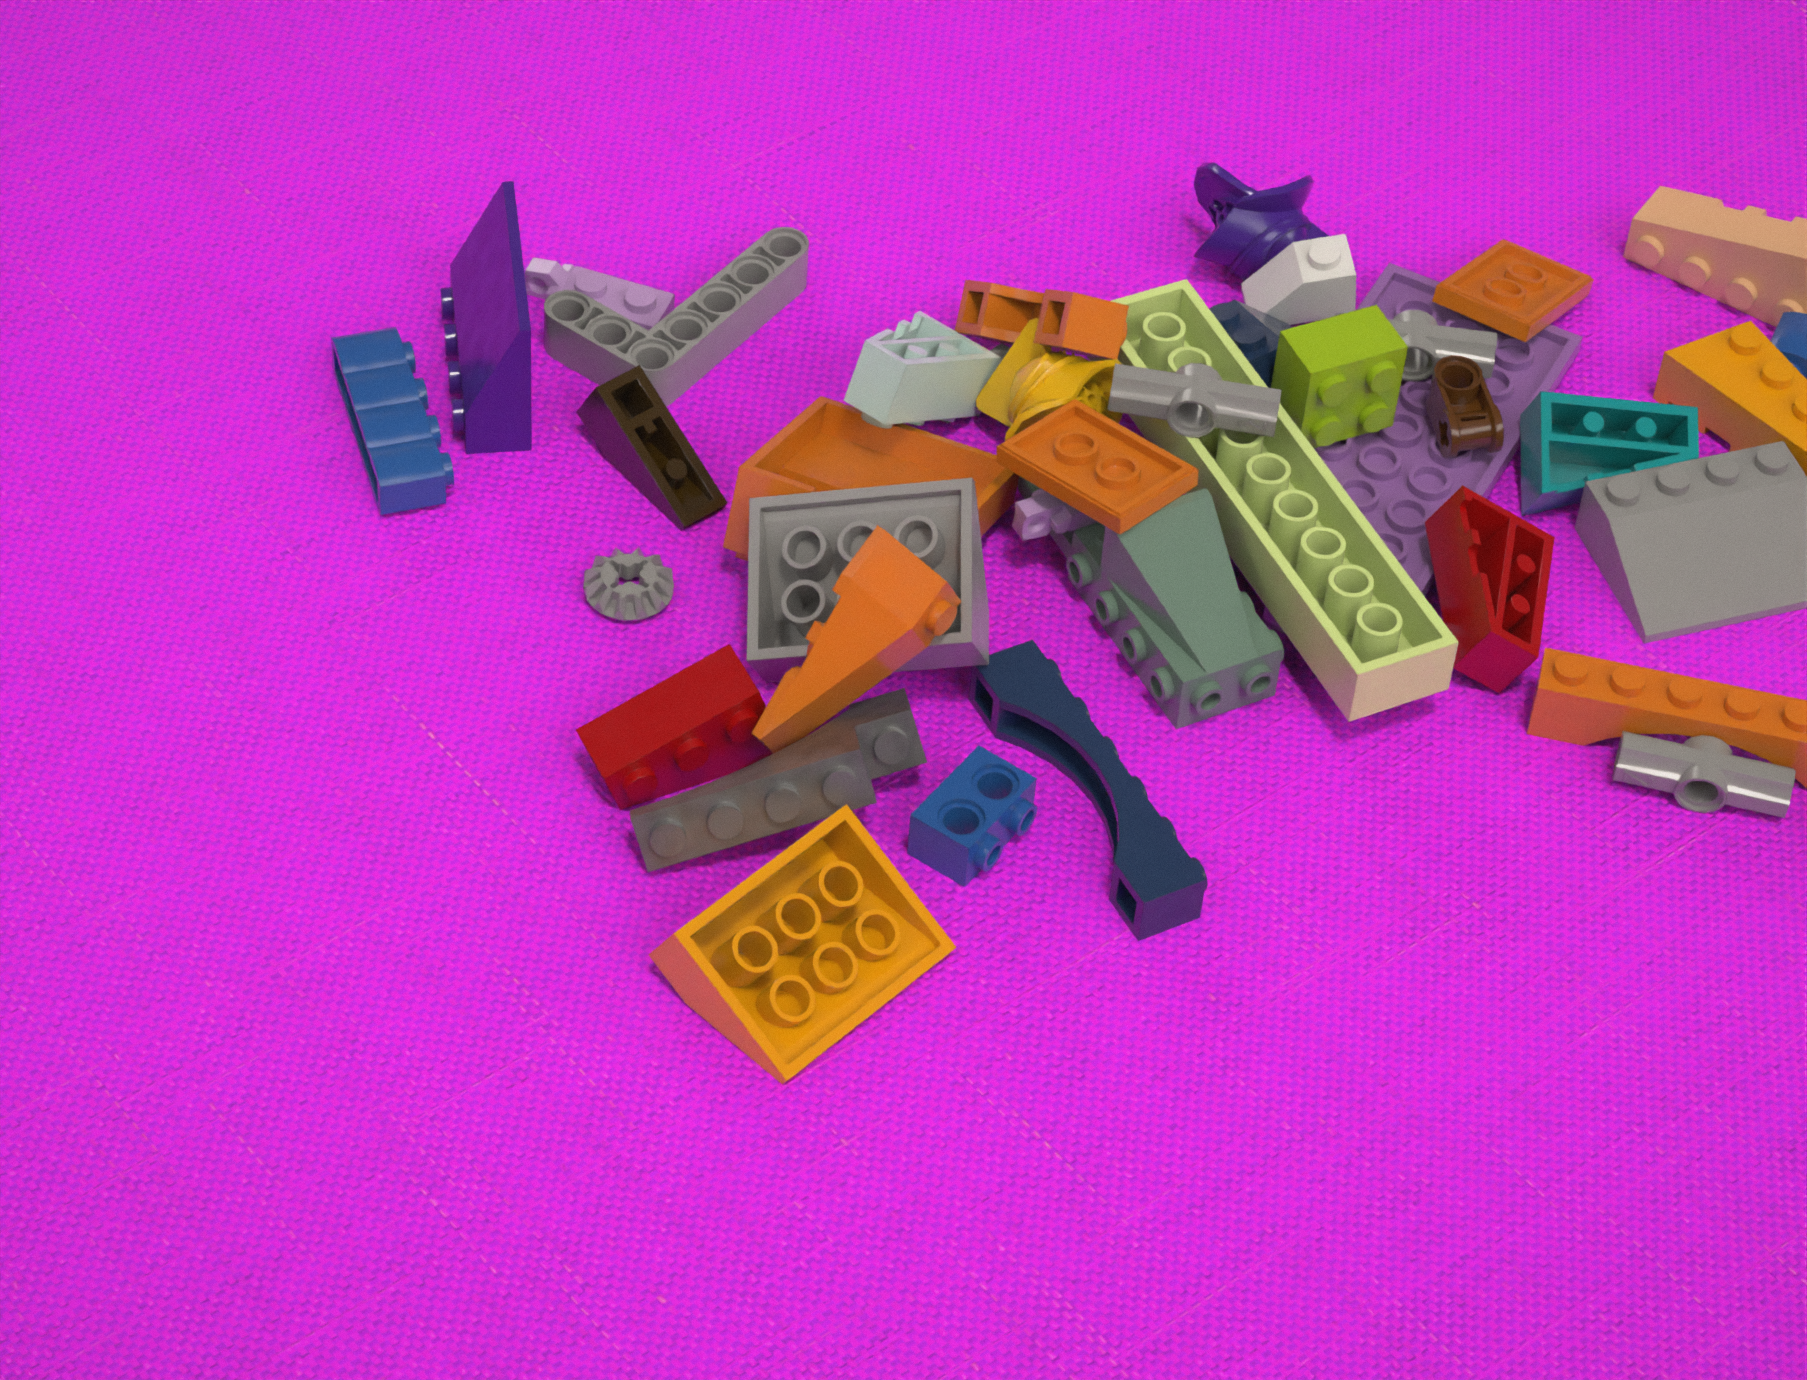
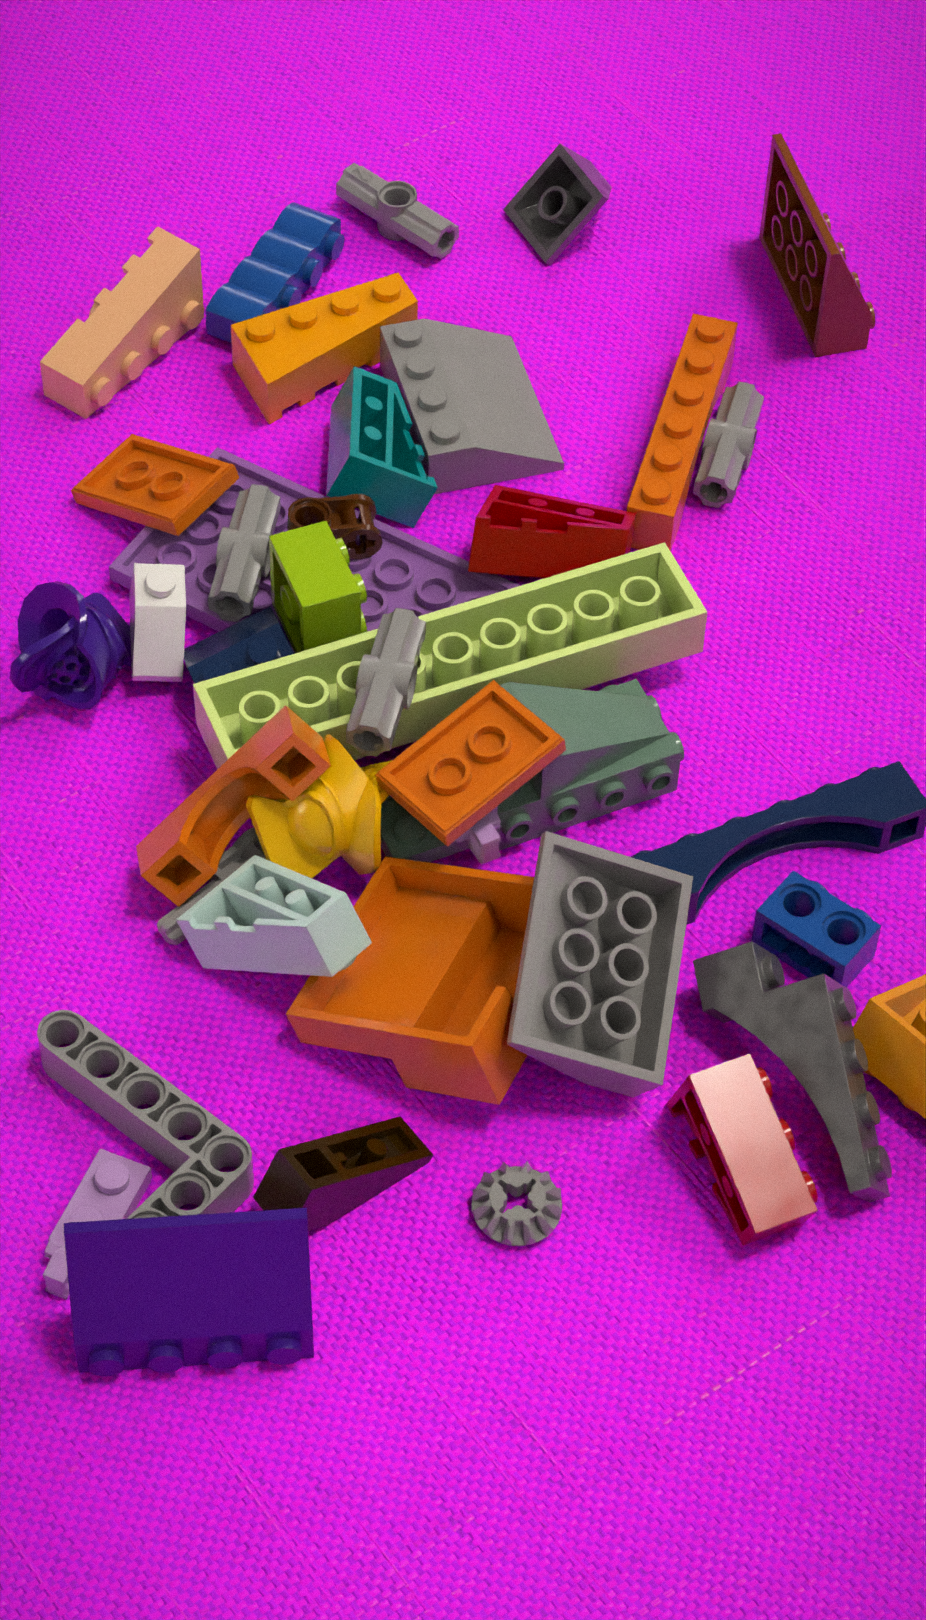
camera: 85 degrees left, 5 degrees up
(391, 421) = (287, 1419): blue brick -> none
(883, 619) = (691, 951): orange wedge -> none

